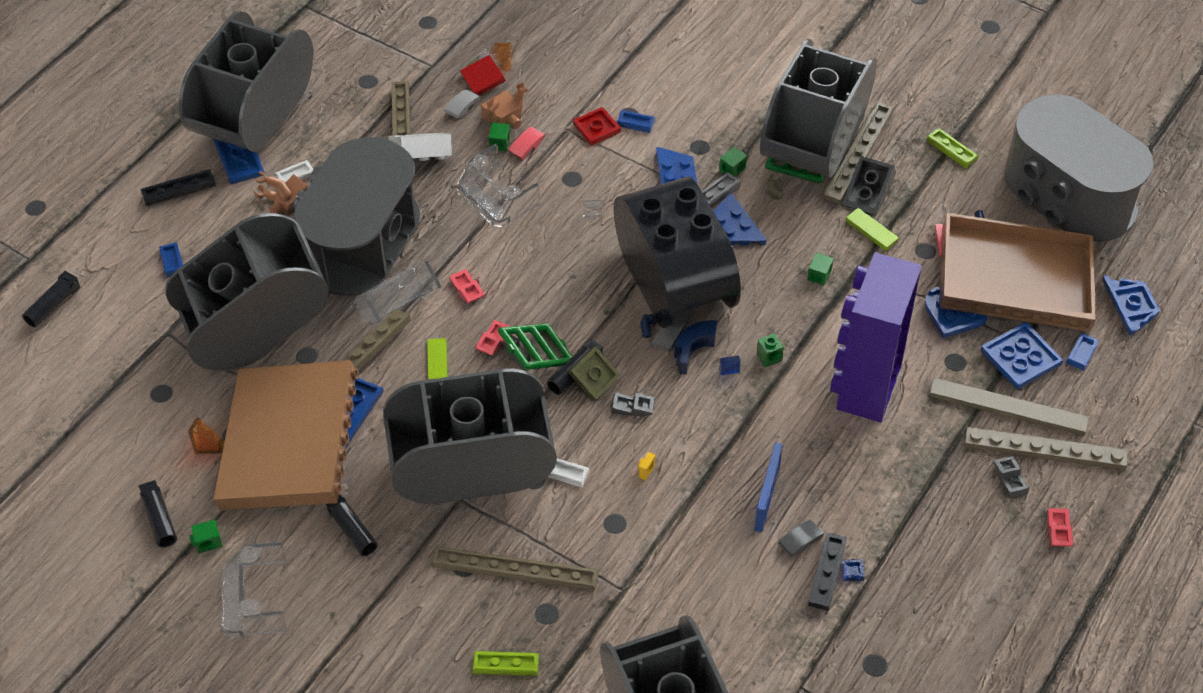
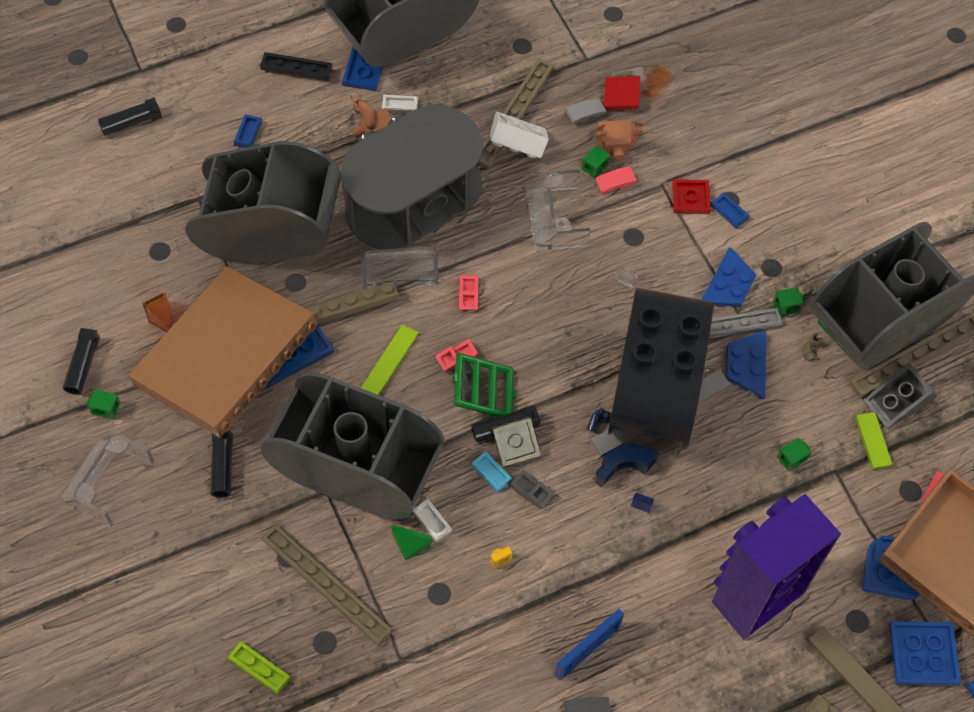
camera: 30 degrees right, 10 degrees up
(561, 495) = (410, 541): none -> green slope
(589, 409) = (491, 472): none -> medium azure tile
(770, 350) = (688, 509): green brick -> none

